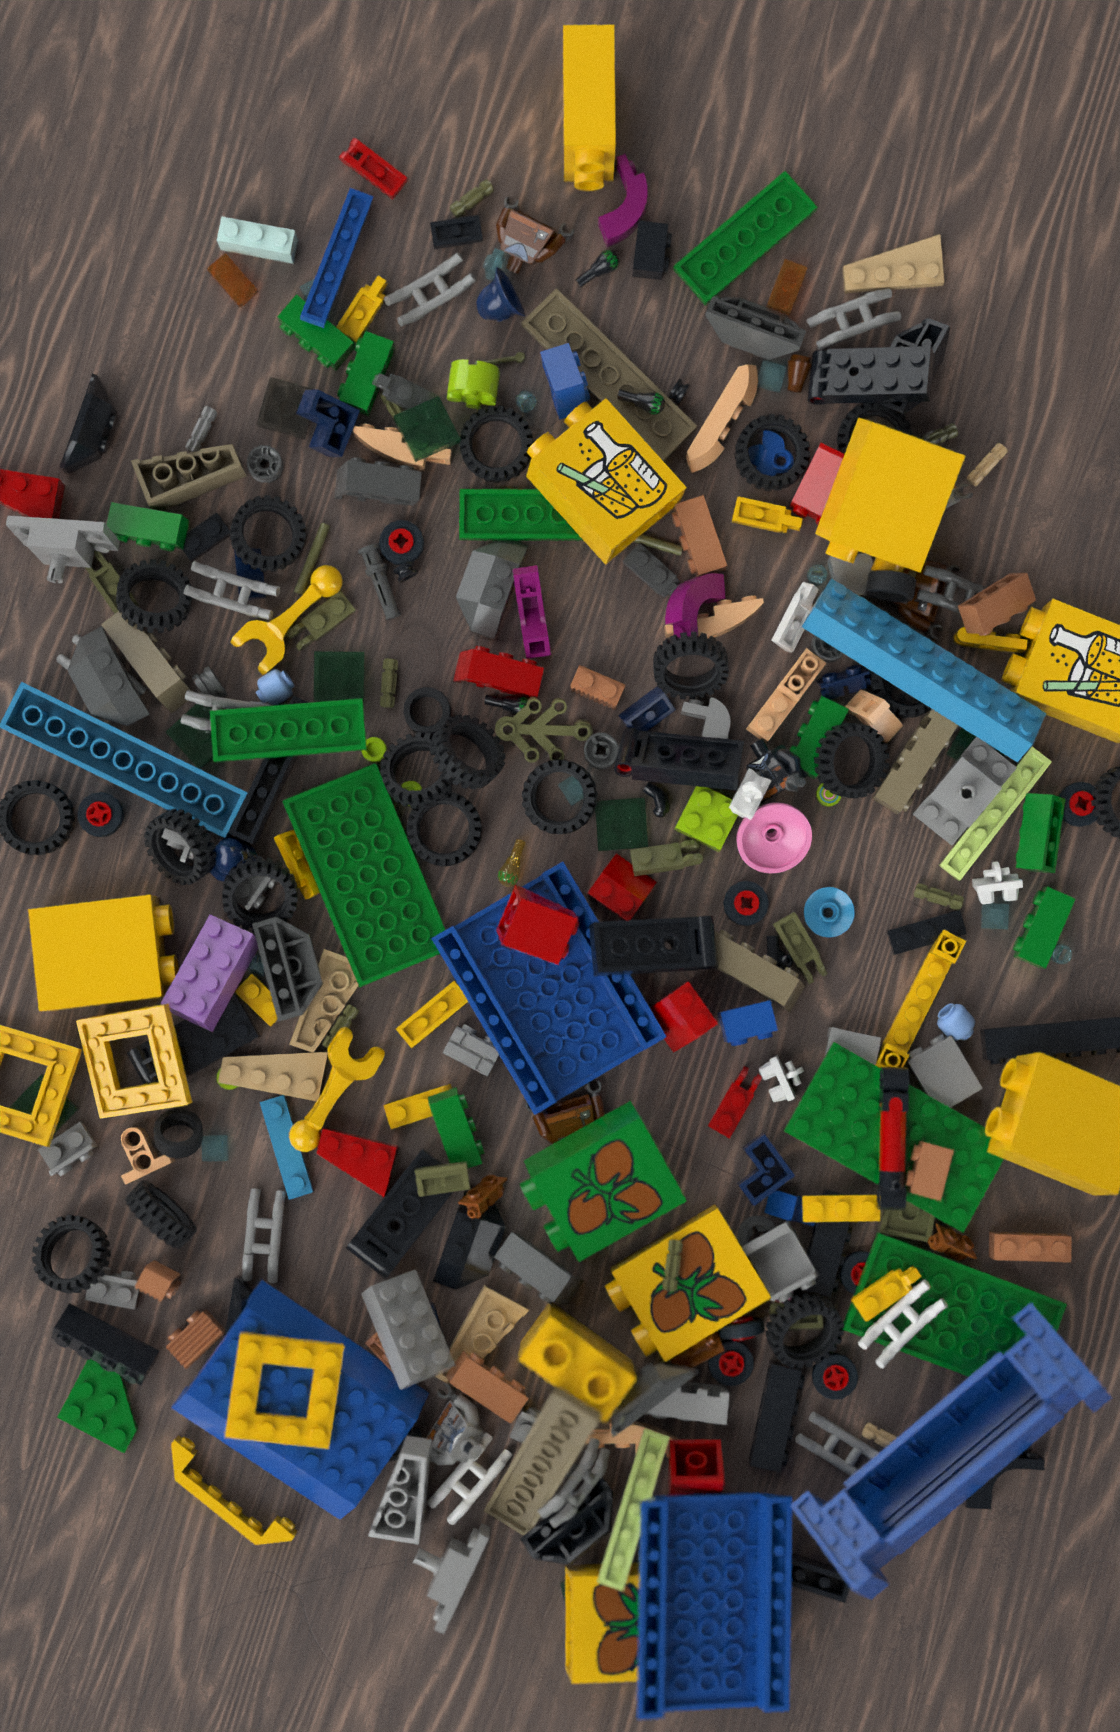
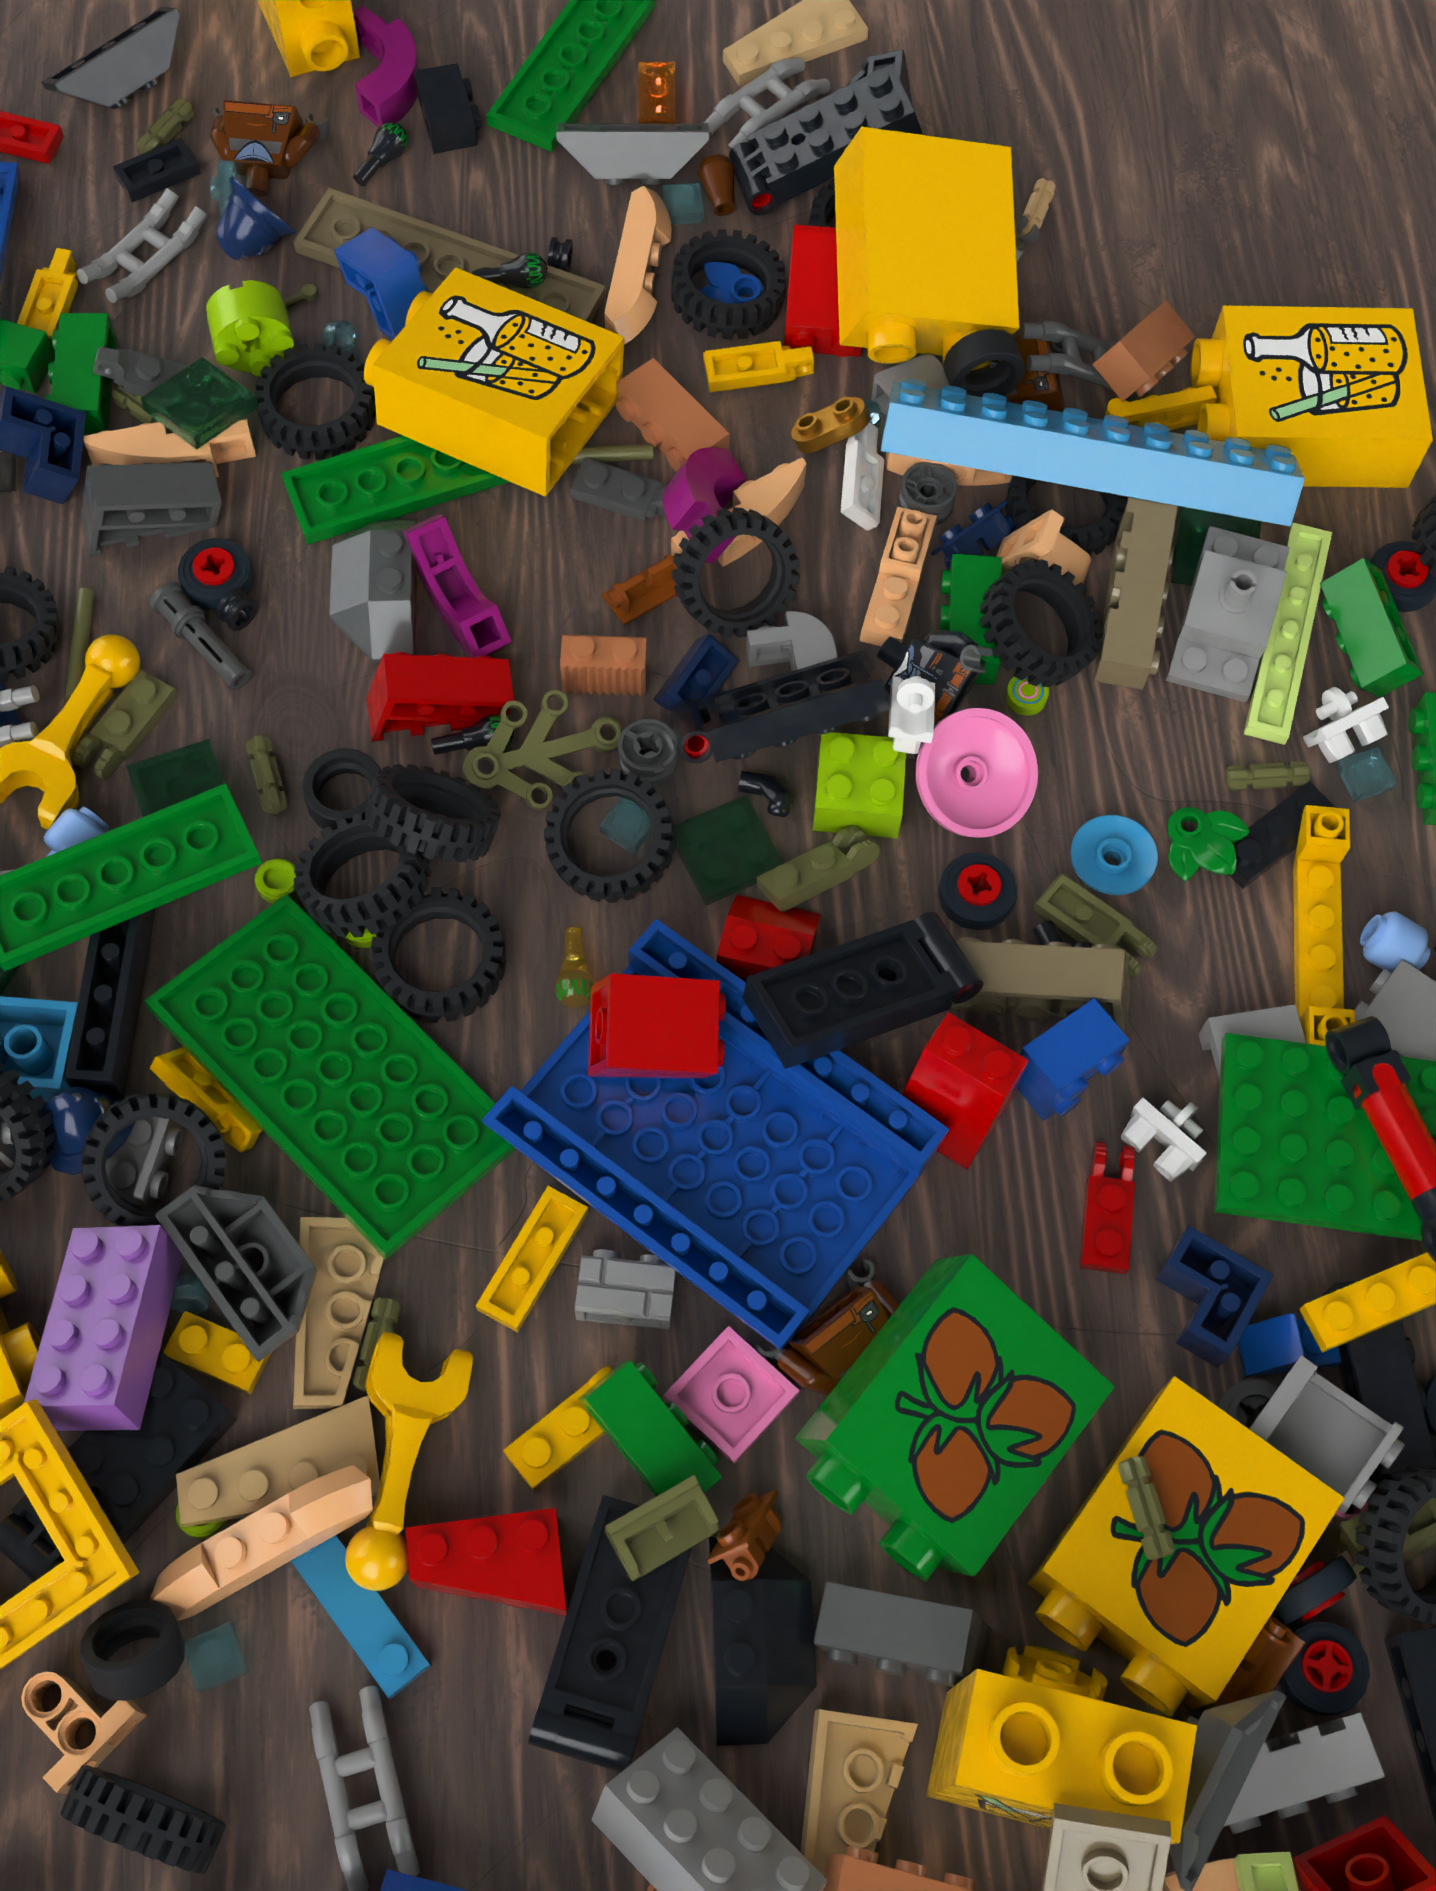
camera: 25 degrees left, 20 degrees down
(254, 1106) = (264, 1541): none -> light nougat brick
(456, 141) = (122, 63): none -> wedge
(504, 1122) = (731, 1395): none -> bright pink plate
(599, 1318) = (1054, 1671): none -> yellow plate
(639, 644) = (642, 591): none -> dark orange hinge
(789, 577) = (830, 424): none -> pearl gold plate
(882, 926) = (1208, 845): none -> green plate

